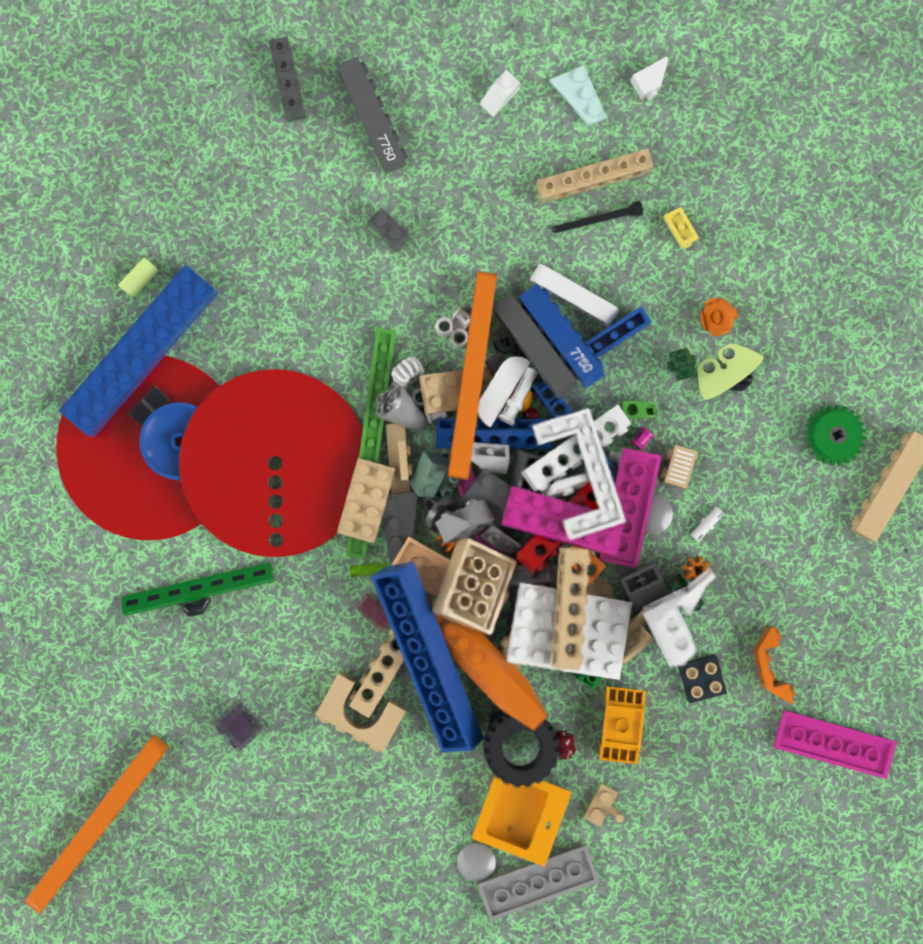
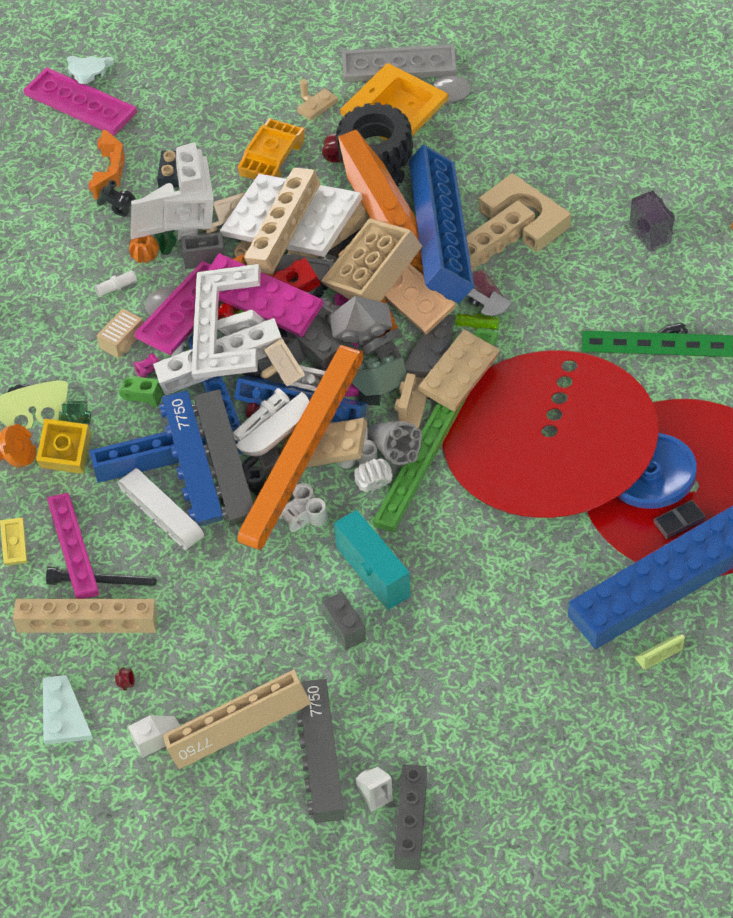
camera: 160 degrees left, 35 degrees down
(320, 92) = (375, 788): none -> white slope
(359, 588) = (491, 305): none -> brick
(381, 286) = (372, 559): none -> teal brick
(438, 110) = (236, 719): none -> tan brick
(518, 452) = (282, 363): none -> tan plate
(542, 134) = (125, 678): none -> dark red plate
(631, 239) = (72, 546): none -> dark pink tile
(677, 326) = (64, 446): none -> yellow brick
(741, 622) = (115, 198): none -> black piece
(844, 790) = (86, 68): none -> light aqua tile

